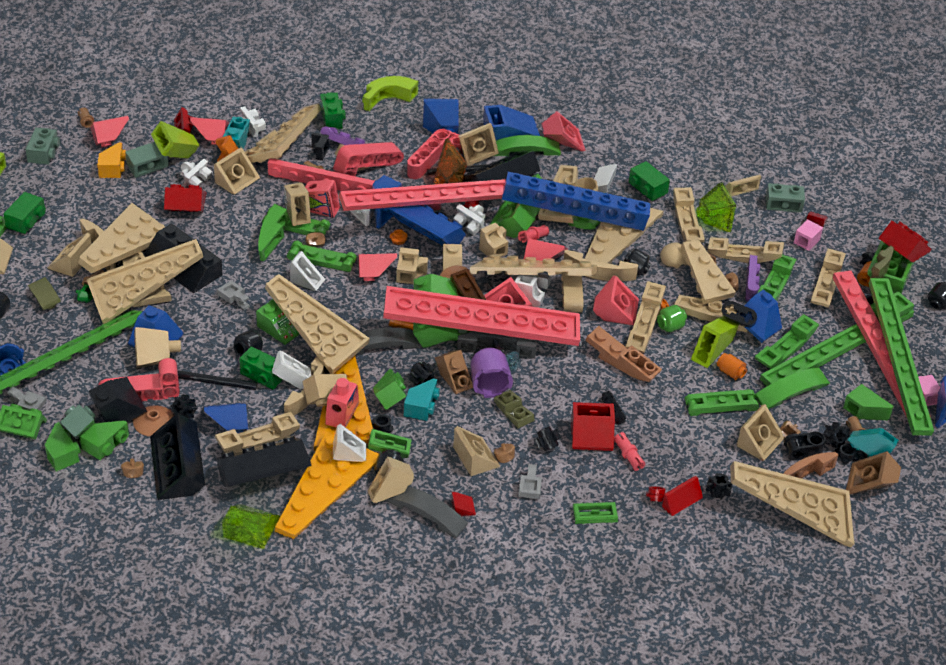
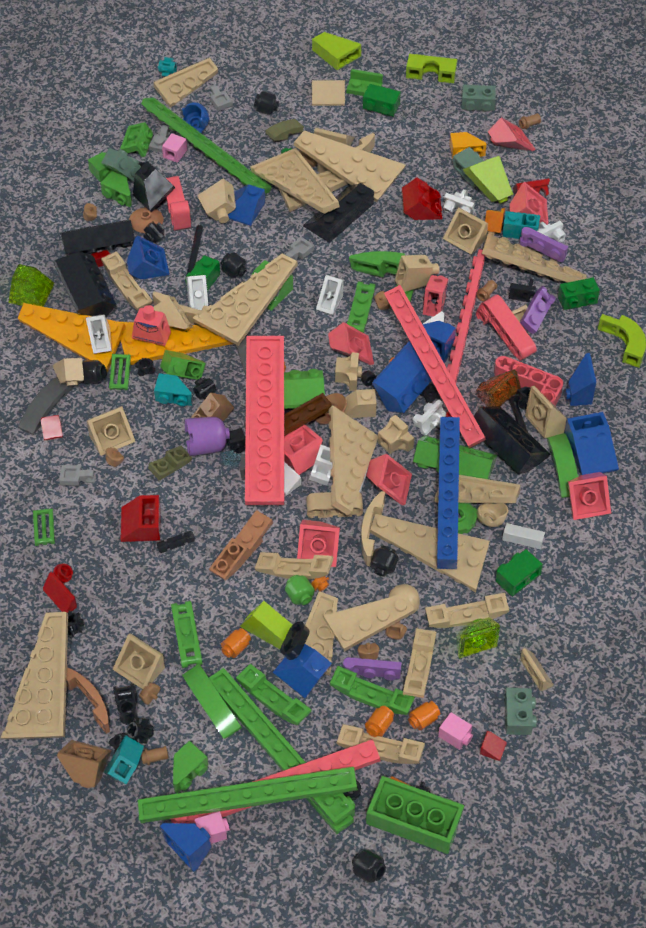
camera: 90 degrees right, 10 degrees up
(48, 385) = (174, 148): none -> bright pink brick
(209, 458) = (99, 255): none -> red slope
(267, 122) = (543, 244): none -> medium lavender plate
(533, 233) = (413, 469): coral pin -> none
(547, 438) = (126, 485): black gear -> none
(629, 451) = (116, 552): coral pin -> none
(795, 250) = (424, 715): none -> orange brick
(805, 278) = (379, 721): none -> orange brick
(882, 265) = (387, 787): olive slope -> none
(905, 241) = (424, 813): red slope -> none

